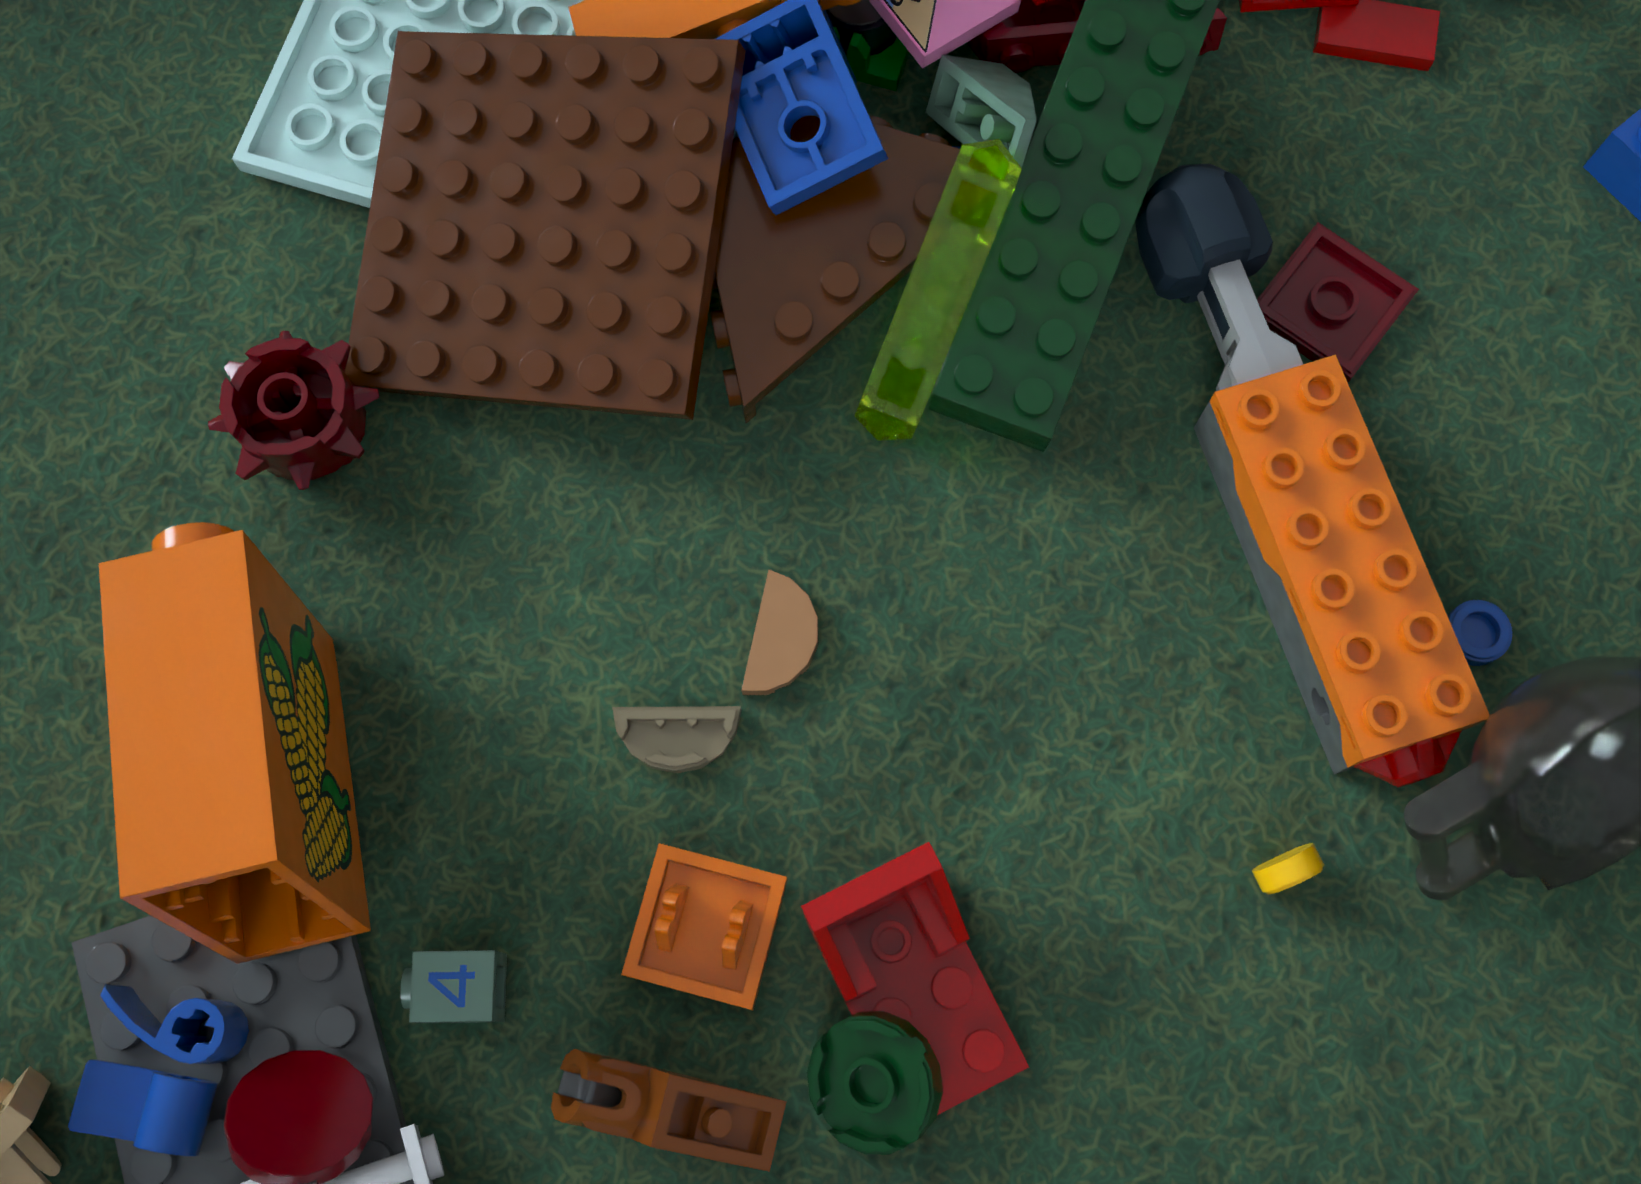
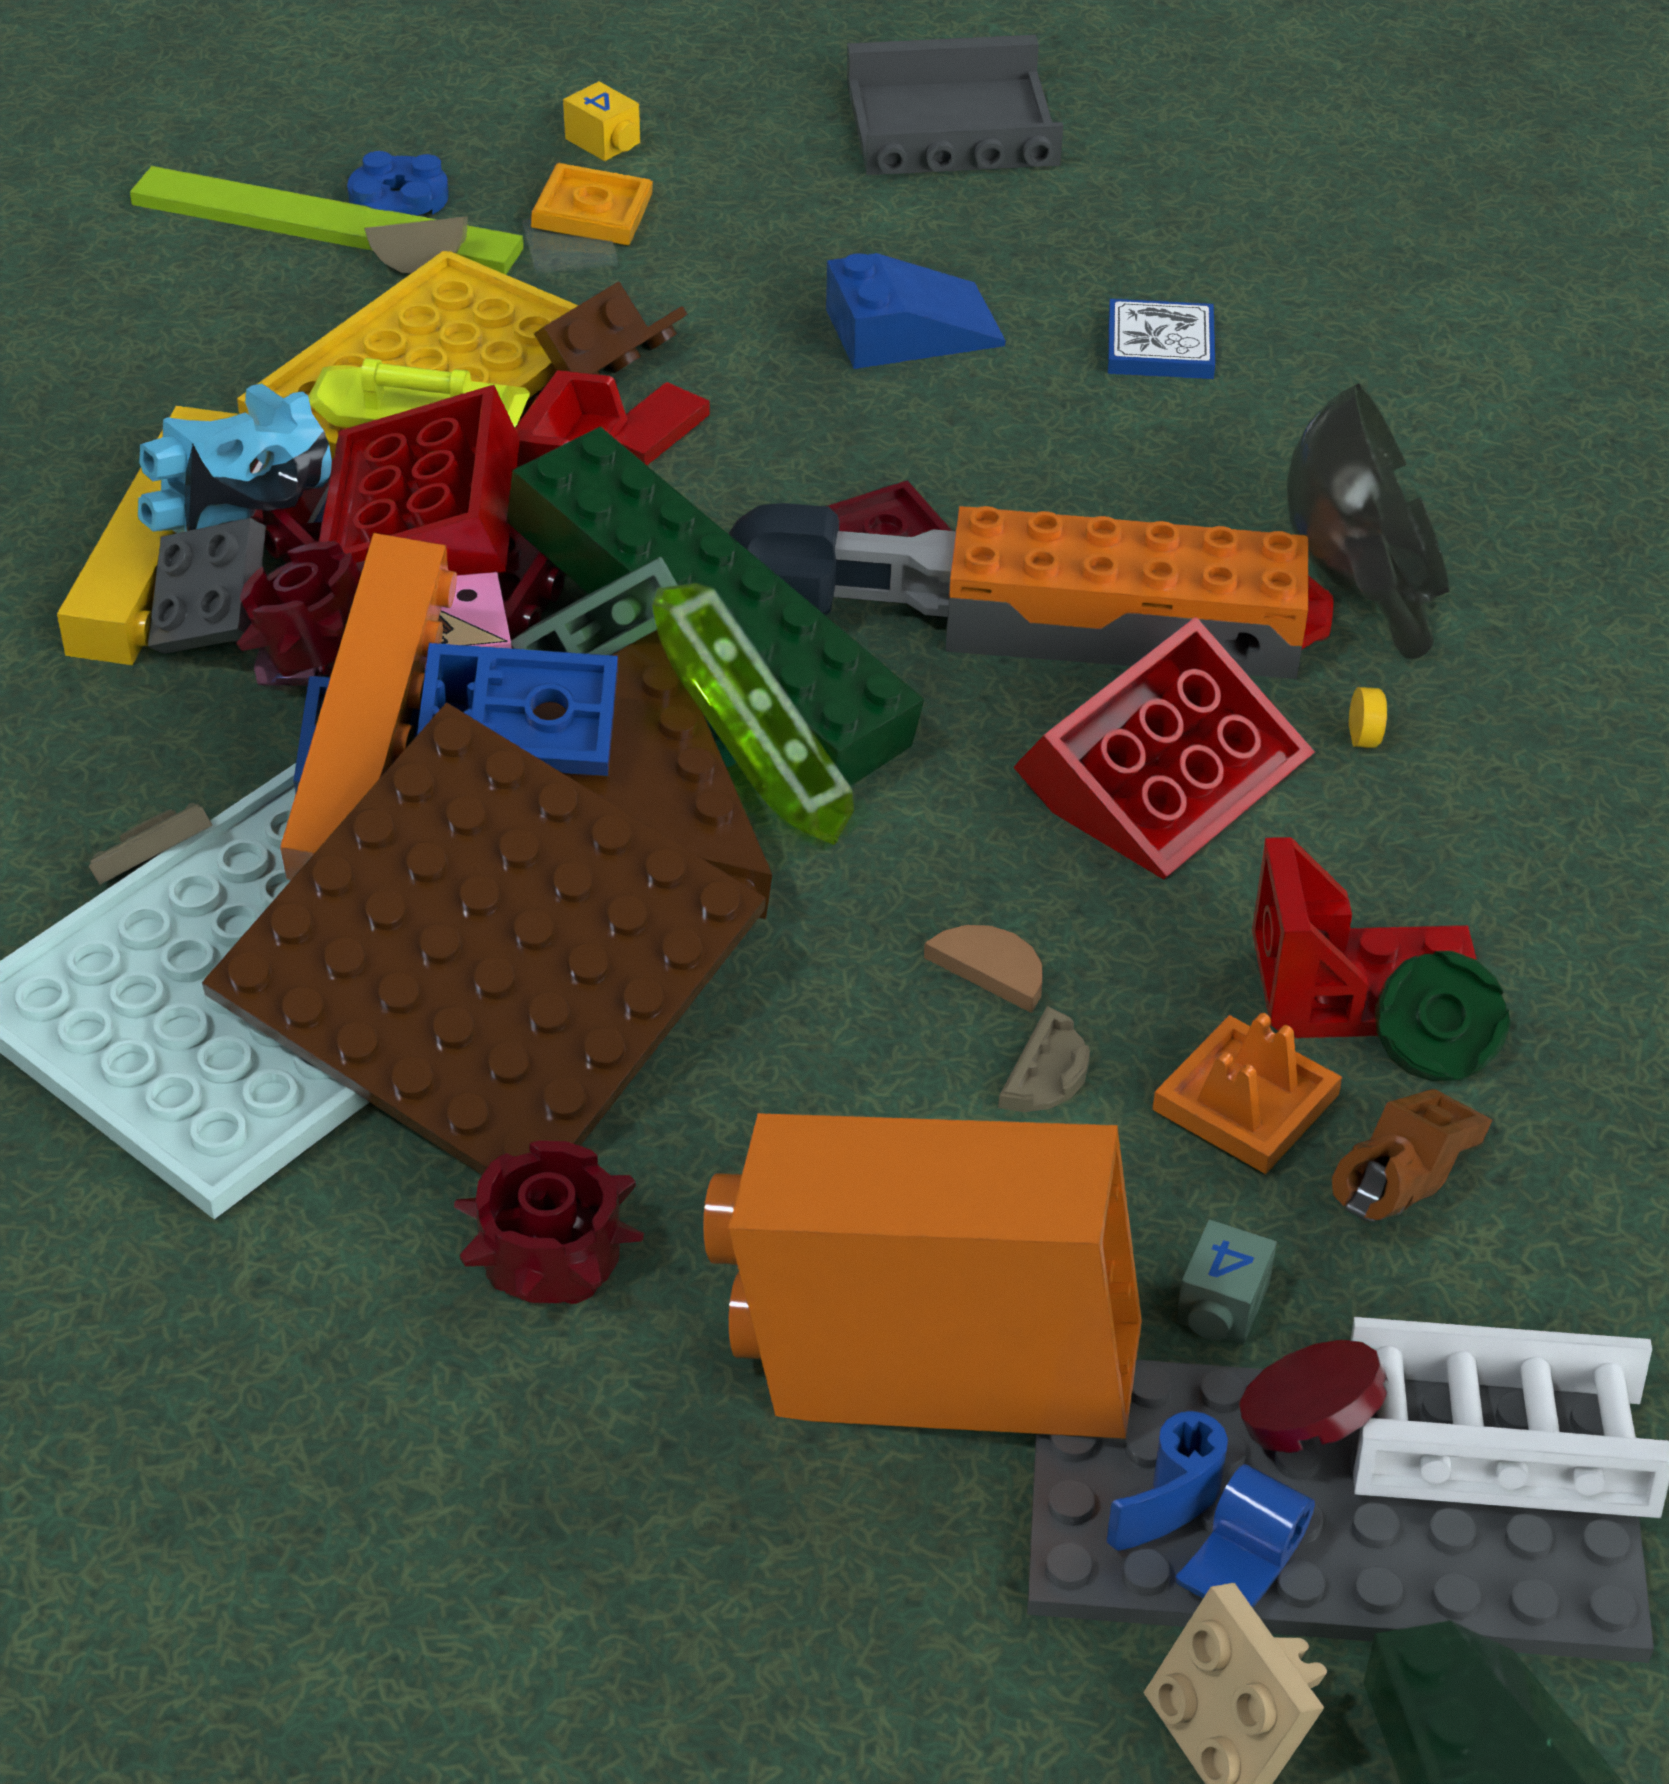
camera: 70 degrees left, 30 degrees down
(1131, 692) = (1165, 753): none -> red slope

